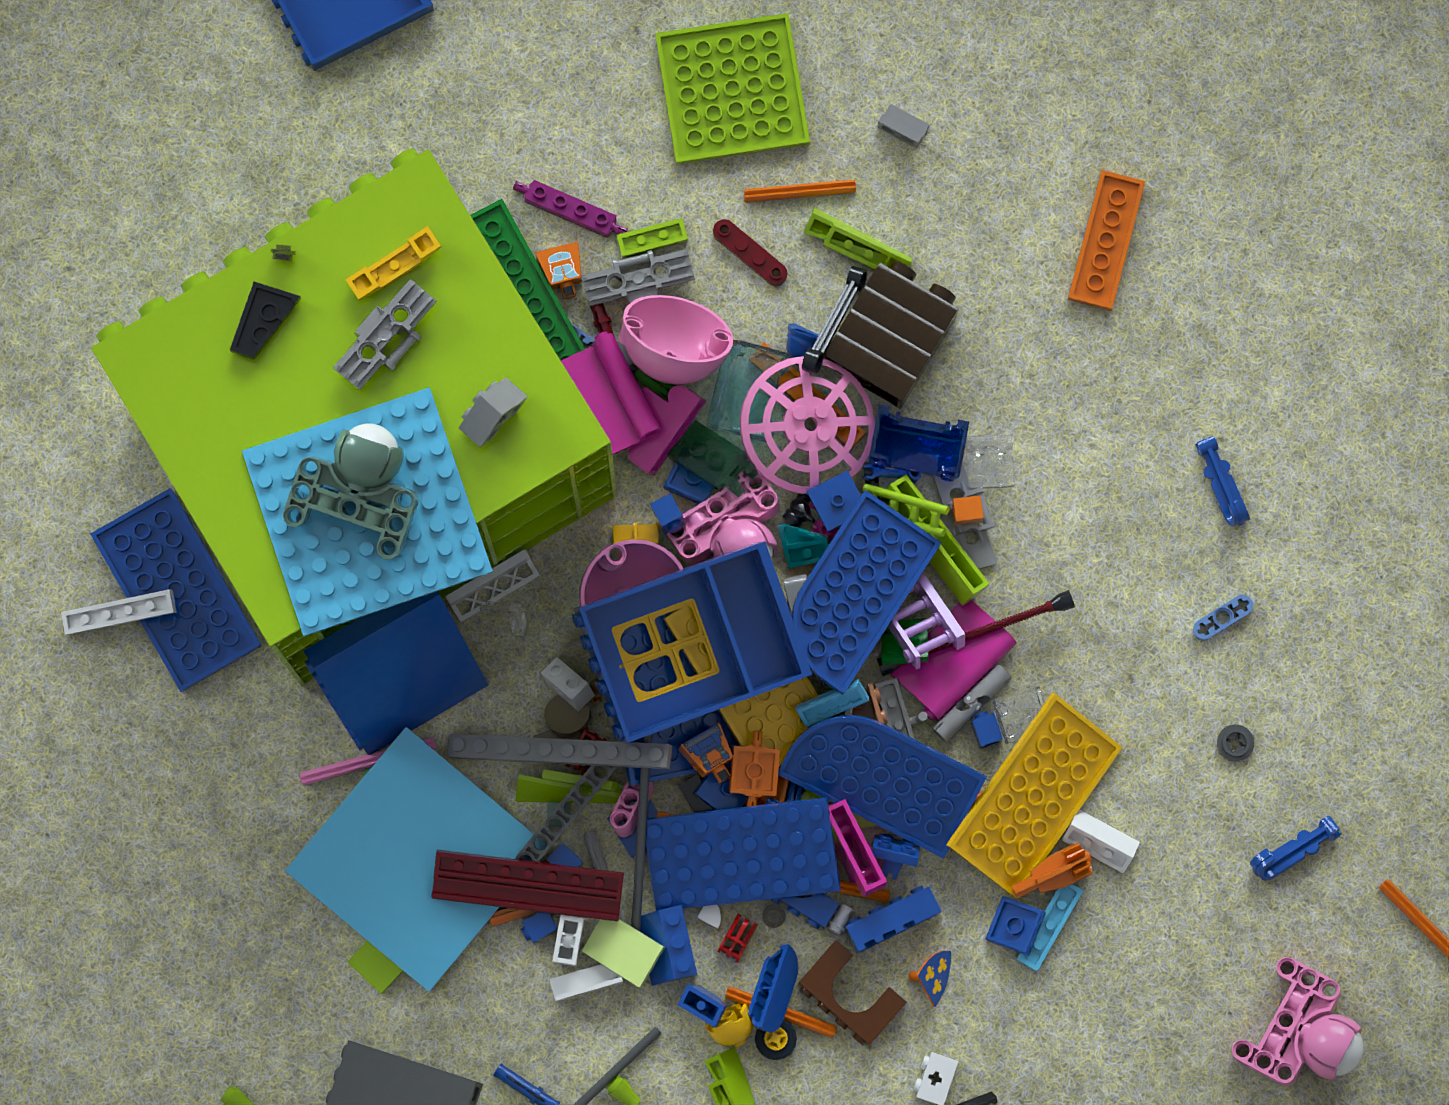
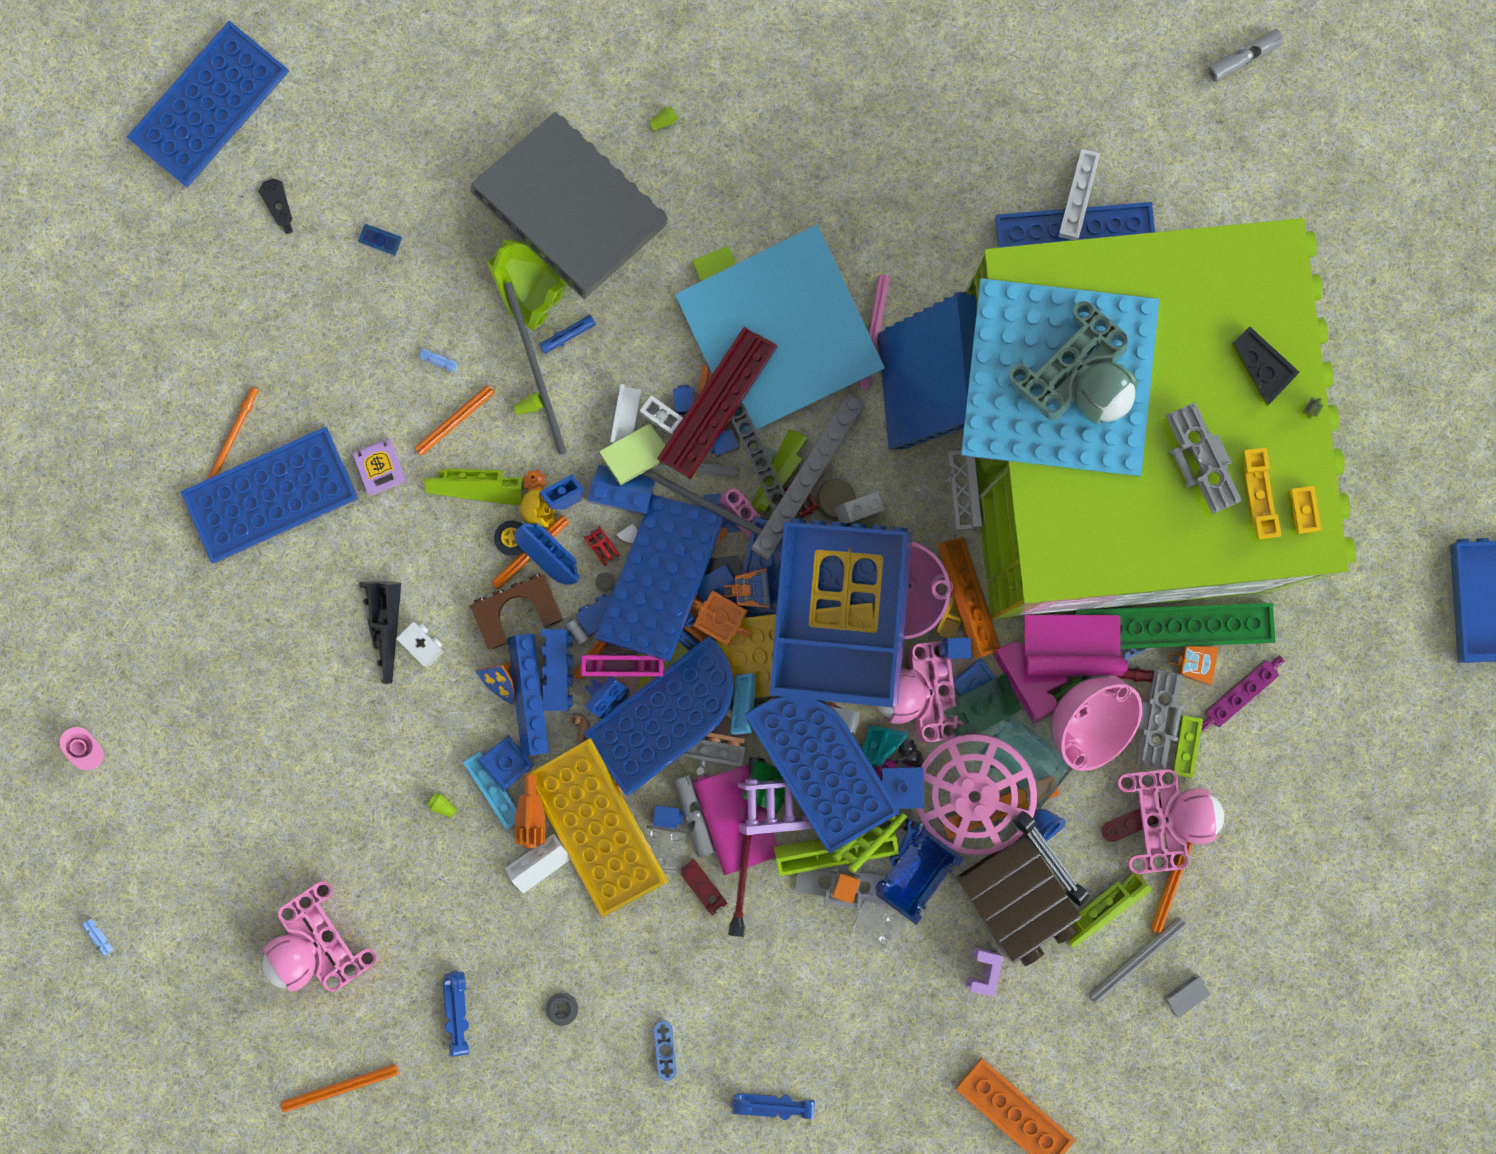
camera: 120 degrees right, 5 degrees up
(389, 215) = (1305, 510): none -> yellow plate
(491, 411) = (1097, 515): light grey brick -> none
(606, 527) = (969, 597): none -> orange plate
(702, 1045) = (534, 480): none -> orange plant
(724, 200) = (1190, 816): none -> bright pink beam
(732, 88) = (1282, 871): lime plate -> none
(892, 190) = (1137, 960): none -> light grey axle
(933, 936) = (528, 695): none -> blue brick
(935, 866) = (581, 724): none -> medium nougat arm
(978, 327) = (990, 972): none -> lavender panel
(1039, 659) = (702, 886): none -> dark red plate
(1093, 973) = (441, 805): none -> lime cone

